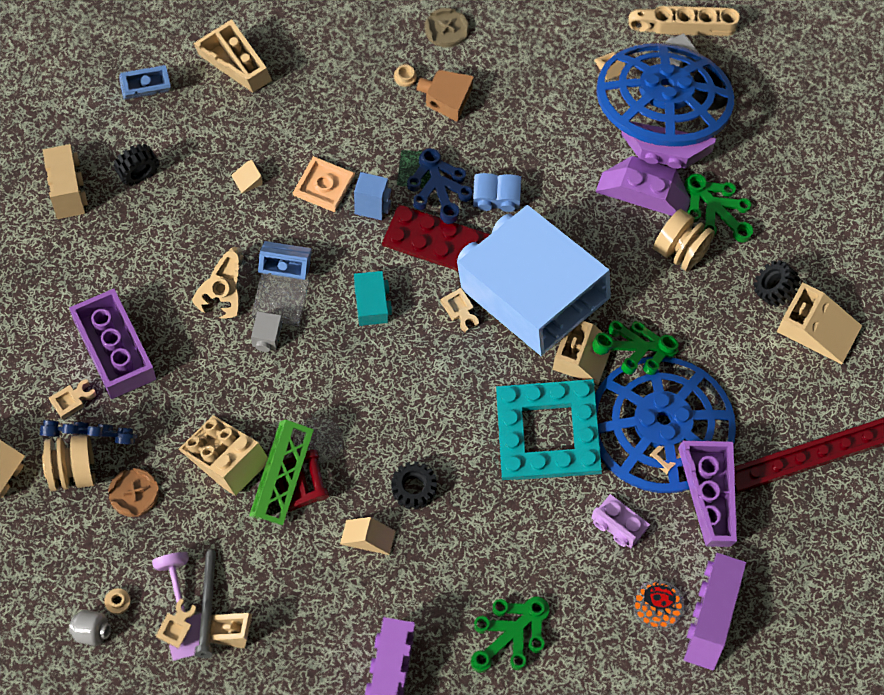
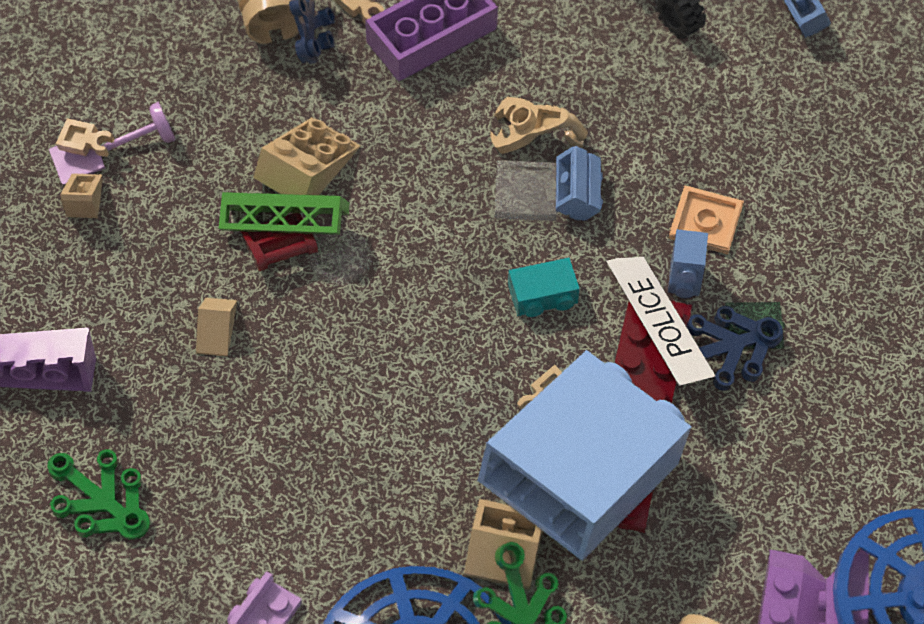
camera: 85 degrees right, 5 degrees down
(90, 627) = (76, 59): light grey head -> none
(117, 608) = (114, 90): tan plate -> none
(133, 492) = (250, 81): medium nougat tile -> none
(204, 649) = (114, 168): dark grey bar -> none
(234, 56) = (868, 91): tan wedge -> none
(247, 177) = (696, 135): tan slope -> none
(266, 331) = (476, 179): light grey brick -> none
(405, 75) = (897, 292): tan plate -> none
(413, 222) = (661, 320): none -> white sticker
(414, 471) = (283, 349): black tyre -> none
(447, 92) = (879, 343): medium nougat torso -> none
(497, 192) = (735, 419): medium blue brick -> none
(548, 464) = (351, 562): teal plate -> none

